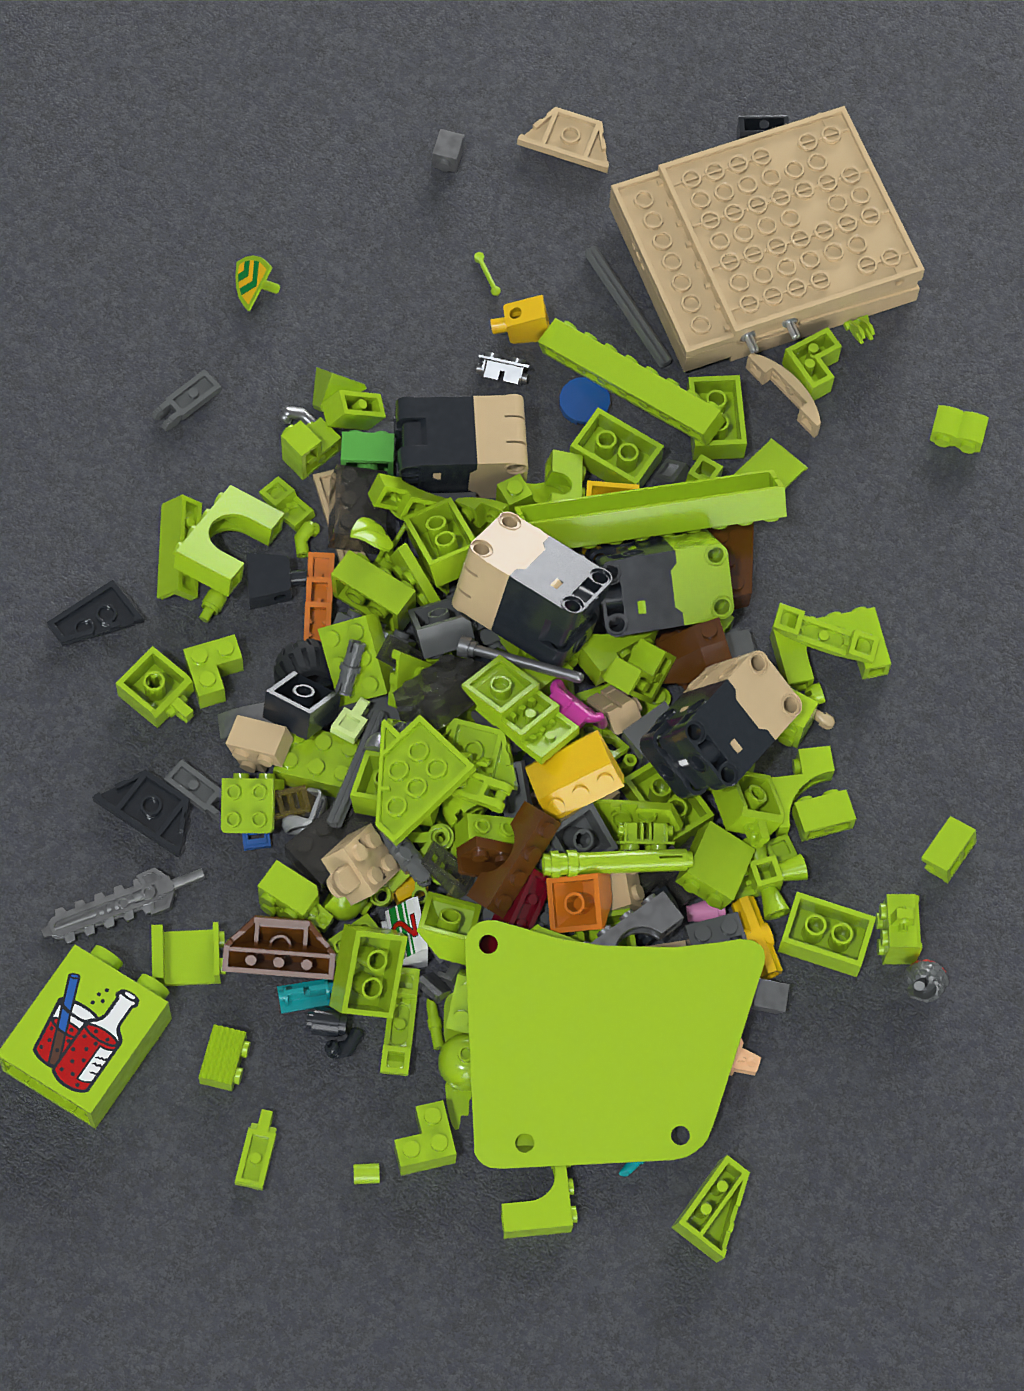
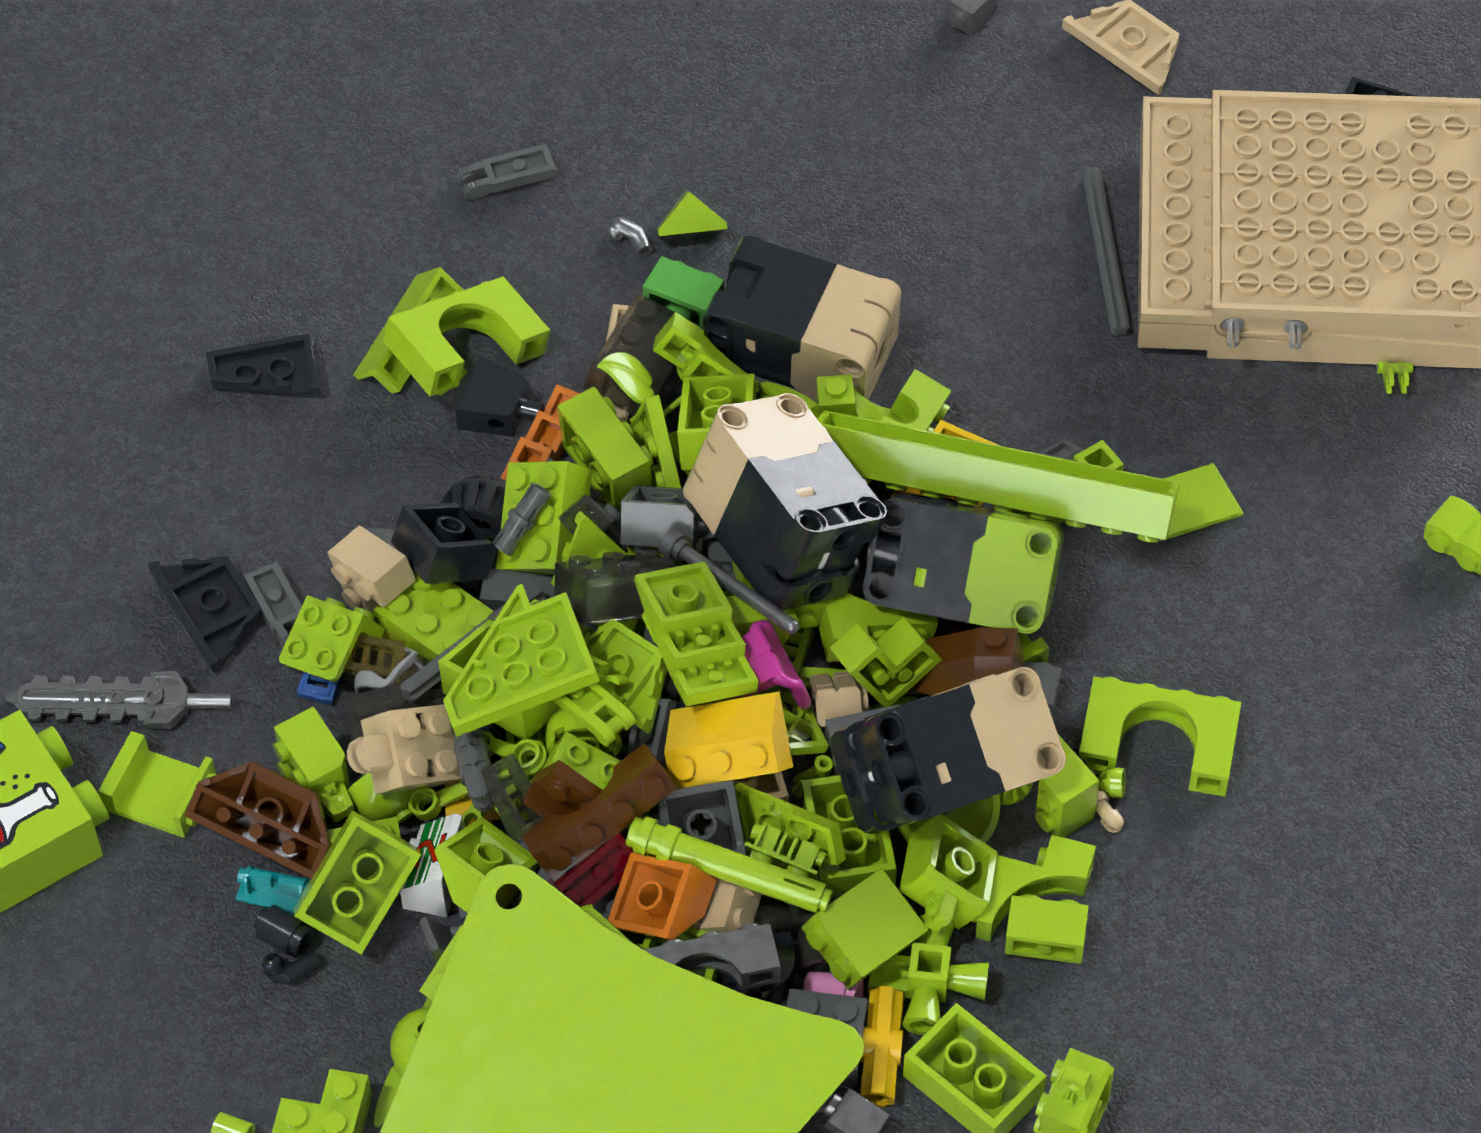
camera: 30 degrees right, 10 degrees down
(169, 689) = (290, 469): lime hinge -> none
(209, 663) = (368, 467): lime brick -> none
(212, 604) = (412, 404): lime cylinder -> none
(223, 1058) = (135, 922): lime brick -> none
(251, 278) = (658, 64): shield -> none
(257, 1153) = (113, 1049): lime hinge -> none
(284, 498) = (565, 326): lime slope -> none
(302, 536) = (571, 362): lime arm -> none
(309, 446) = (617, 269): lime brick -> none
(351, 723) = (492, 588): yellowish green plate -> none
(353, 410) = (695, 242): lime brick -> none
(400, 1029) = (375, 969): lime slope -> none
(434, 1024) = (415, 983): lime piece -> none
(479, 258) = (949, 137): lime hinge -> none
(493, 365) = (900, 257): hinge -> none
(523, 320) = (963, 220): yellow torso -> none
(581, 399) = (994, 338): blue tile -> none
(616, 450) = (1000, 401): lime brick -> none
(632, 381) = (1059, 329): lime brick -> none
(731, 438) = (1149, 408): lime brick -> none
(739, 545) = (1084, 583): reddish brown wedge -> none
(765, 369) = (1246, 381): tan slope -> none
(781, 847) = (970, 949): lime tile -> none
(810, 361) = (1307, 384): lime brick -> none
(825, 636) = (1151, 708): lime slope -> none
(949, 849) = (1197, 1038): lime hinge -> none

